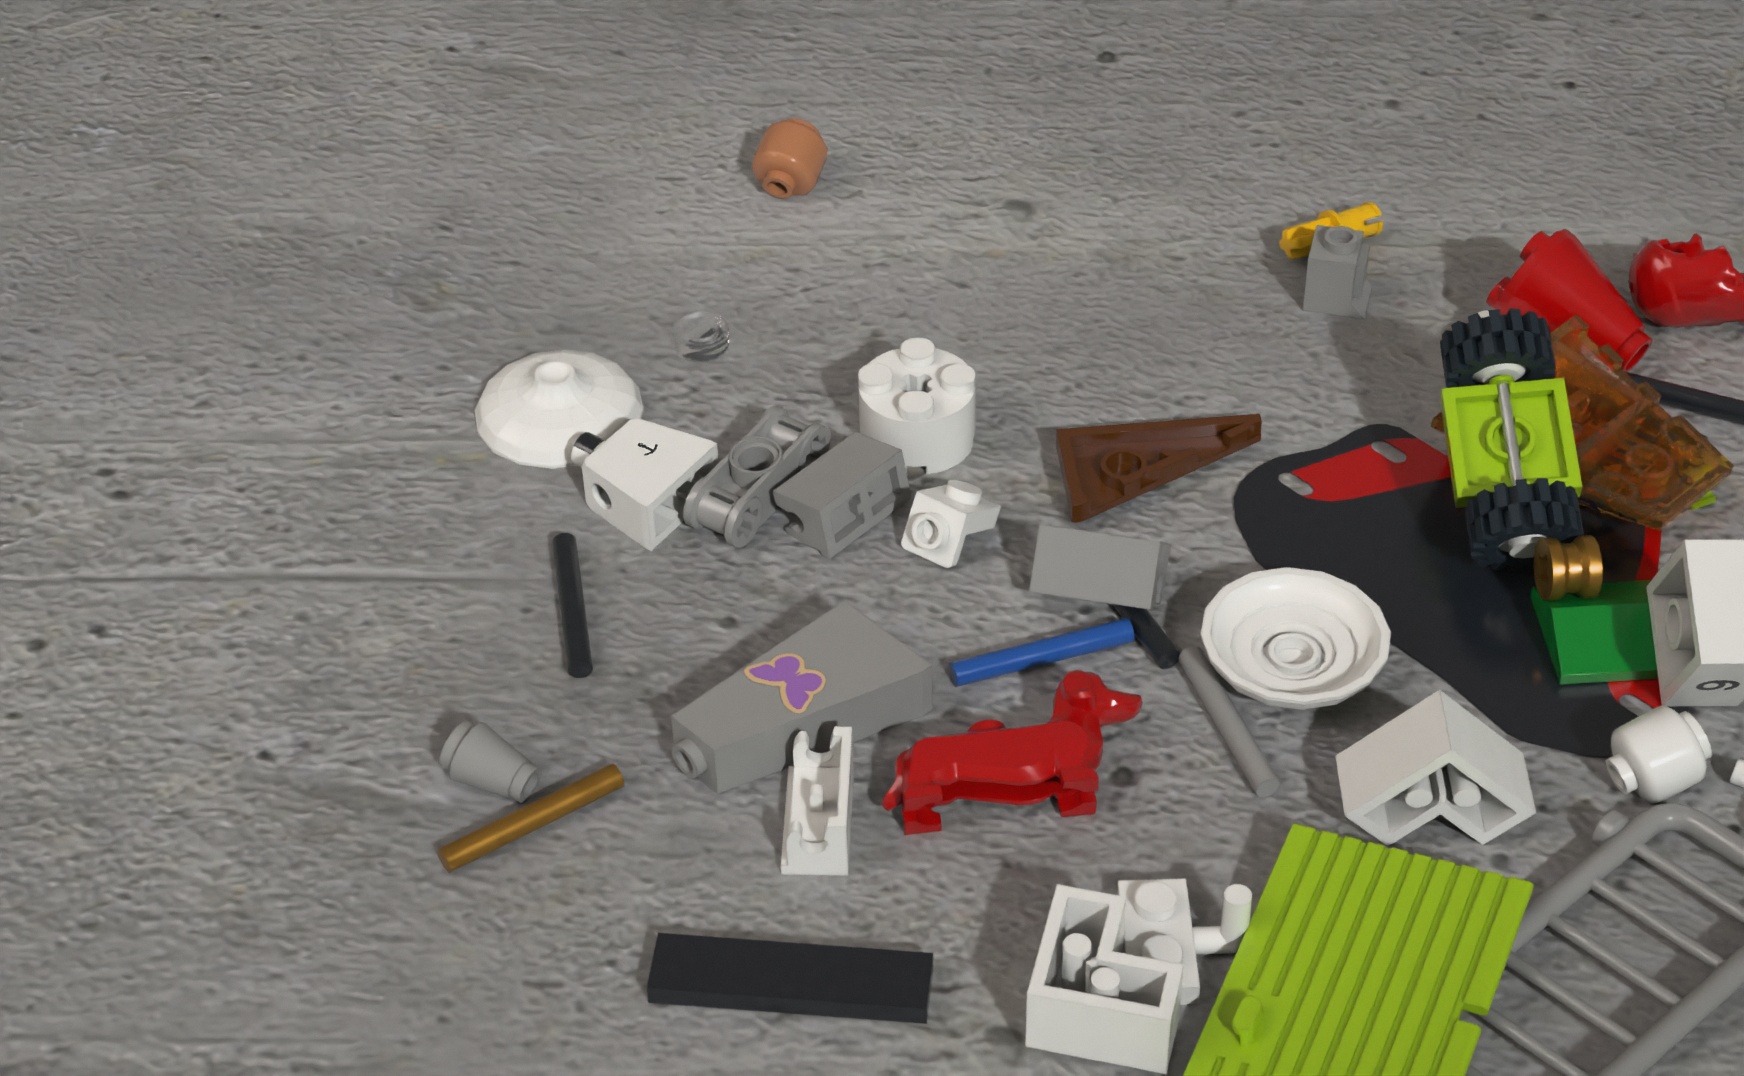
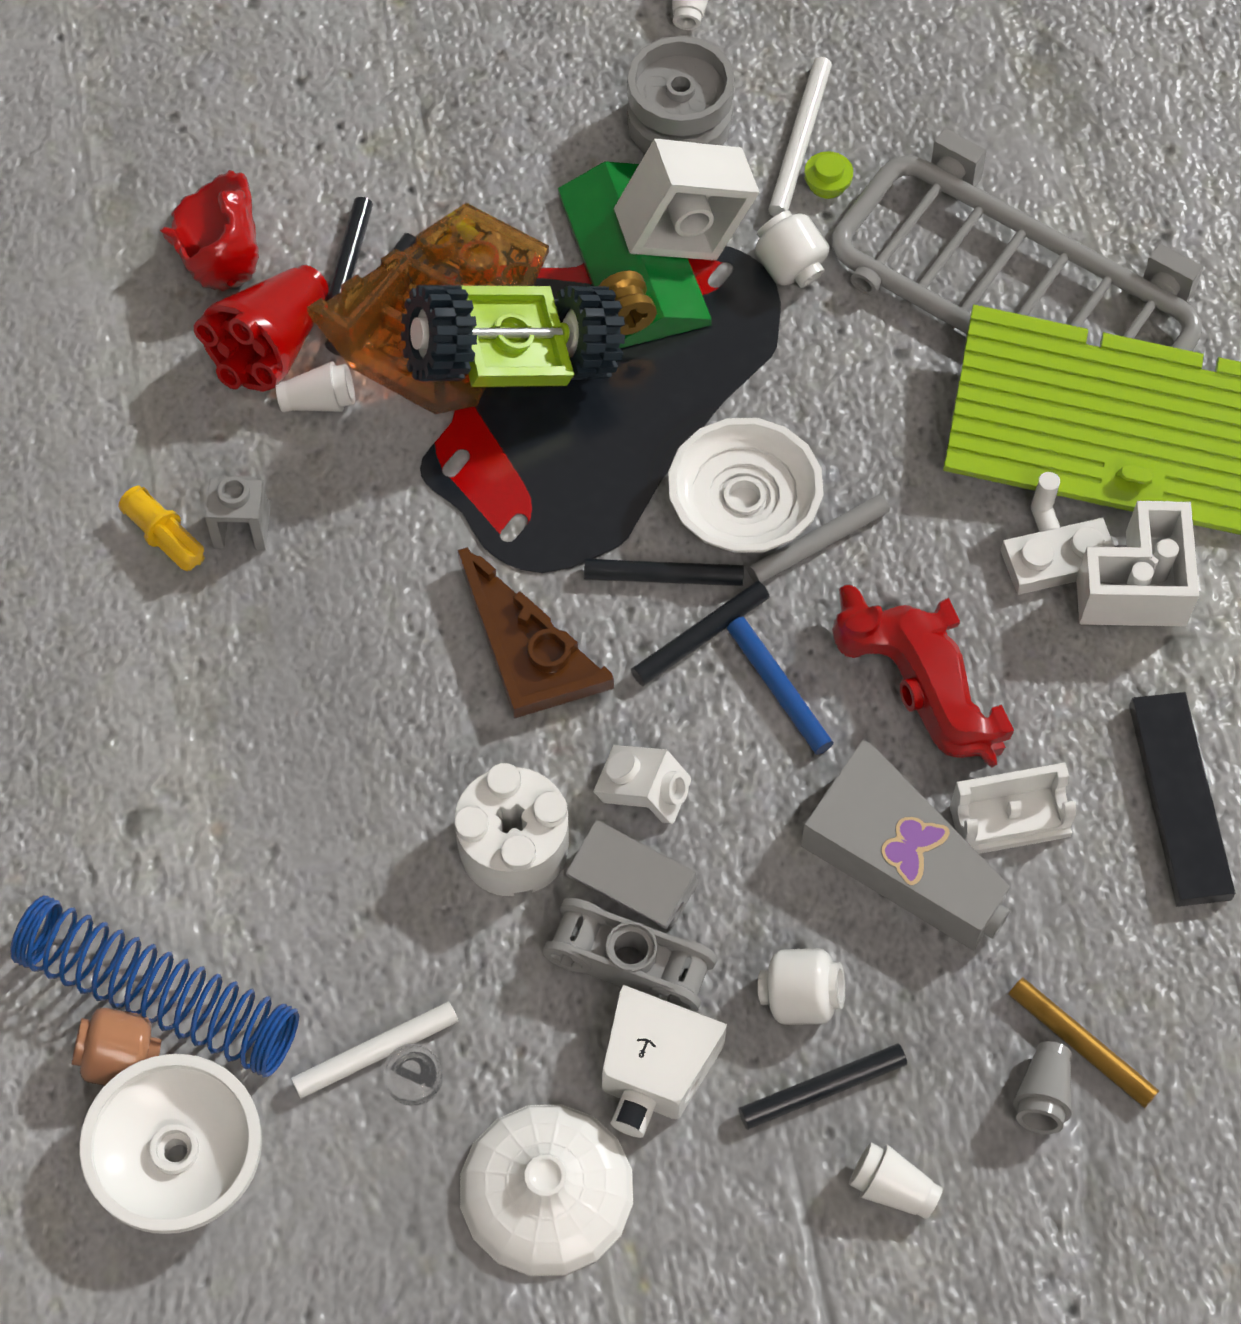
camera: 105 degrees left, 20 degrees up
(448, 625) = (894, 1182): none -> white cone
(675, 590) = (802, 986): none -> white head
(683, 168) = (149, 1112): none -> white dish
(735, 316) = (374, 1050): none -> white bar
(895, 128) = (272, 1034): none -> blue piece
(1099, 567) = (687, 643): light grey hinge -> none
(1210, 577) = (664, 572): none -> black bar
(1434, 765) = (878, 378): white brick -> none

